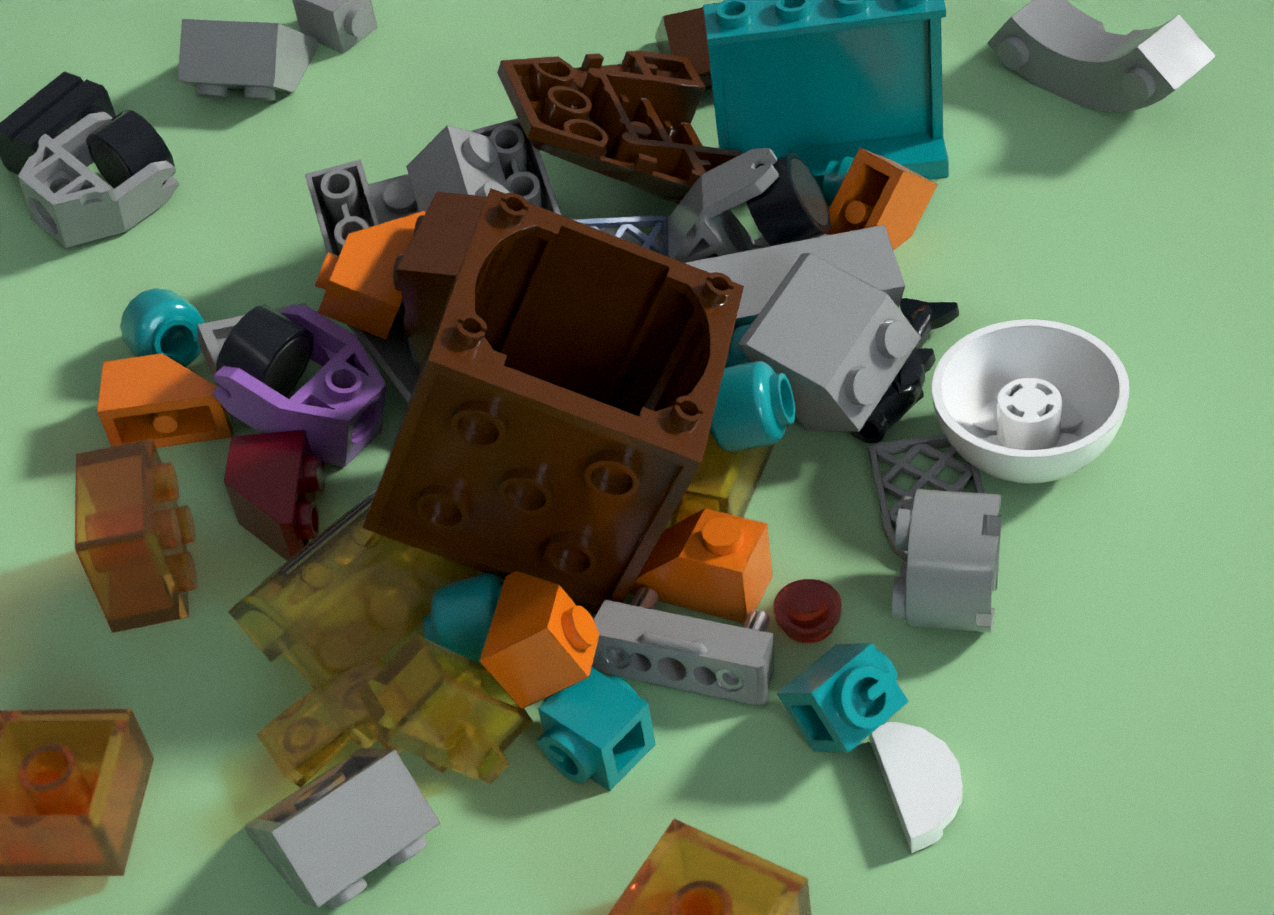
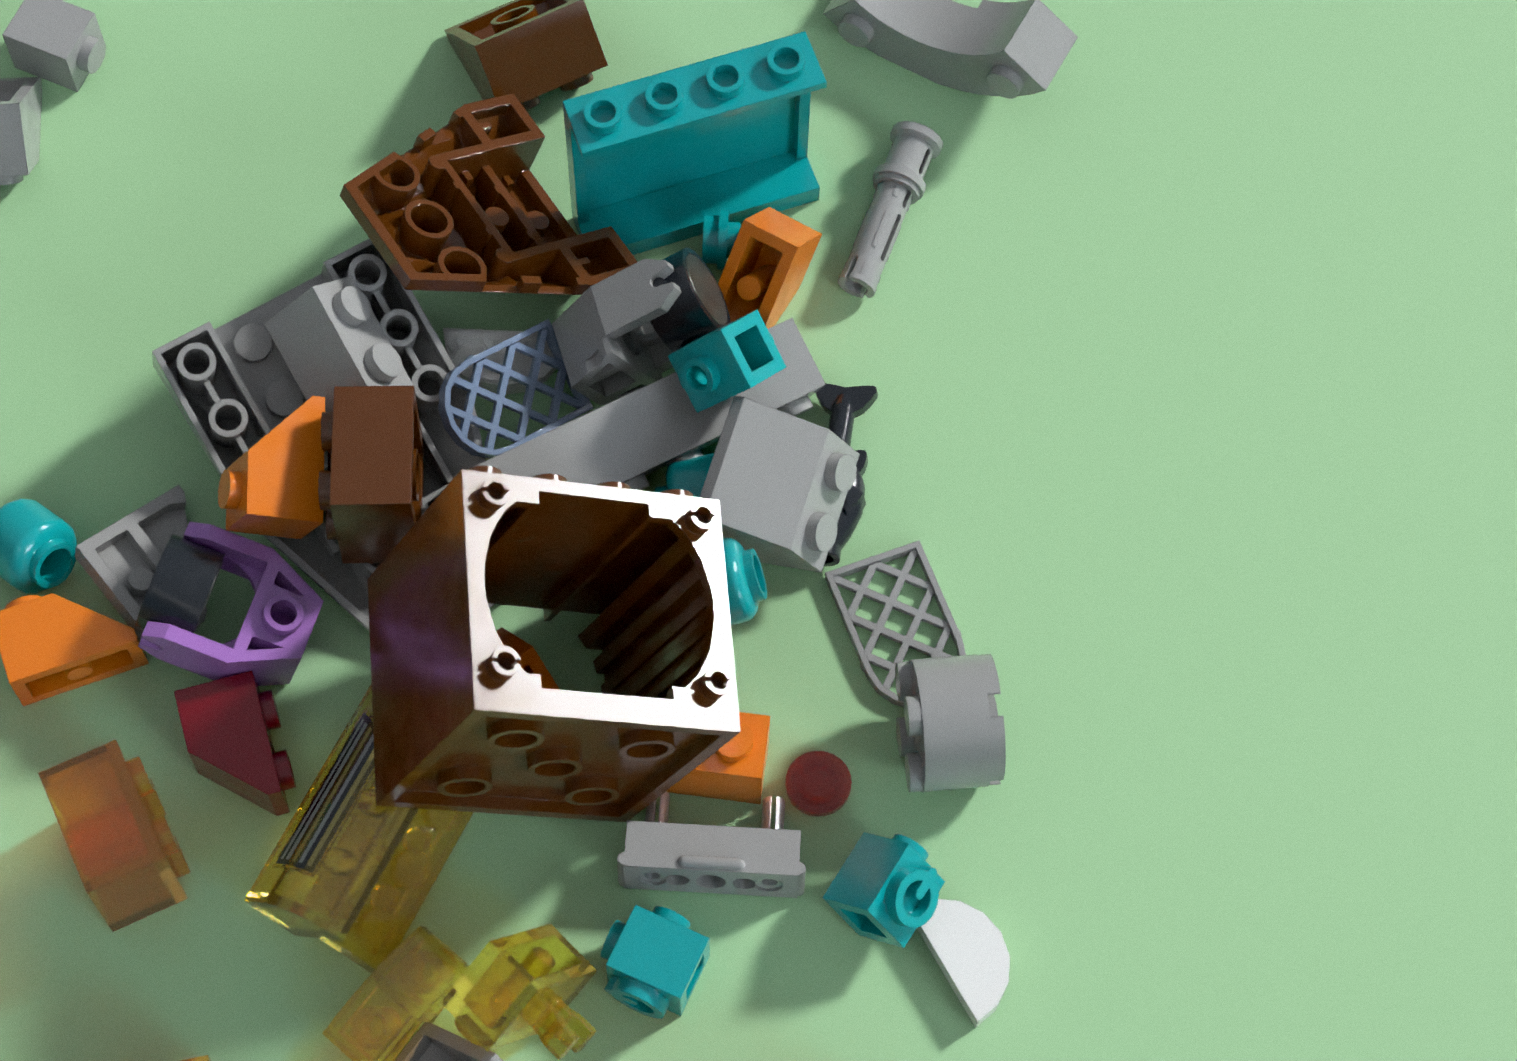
camera: 25 degrees left, 20 degrees up
(463, 614) = (501, 862): teal head -> none
(538, 640) = (587, 892): orange slope -> none
(804, 220) = (727, 361): none -> teal brick
(1021, 165) = (897, 186): none -> light grey pin
(1030, 399) = (985, 486): white piece -> none

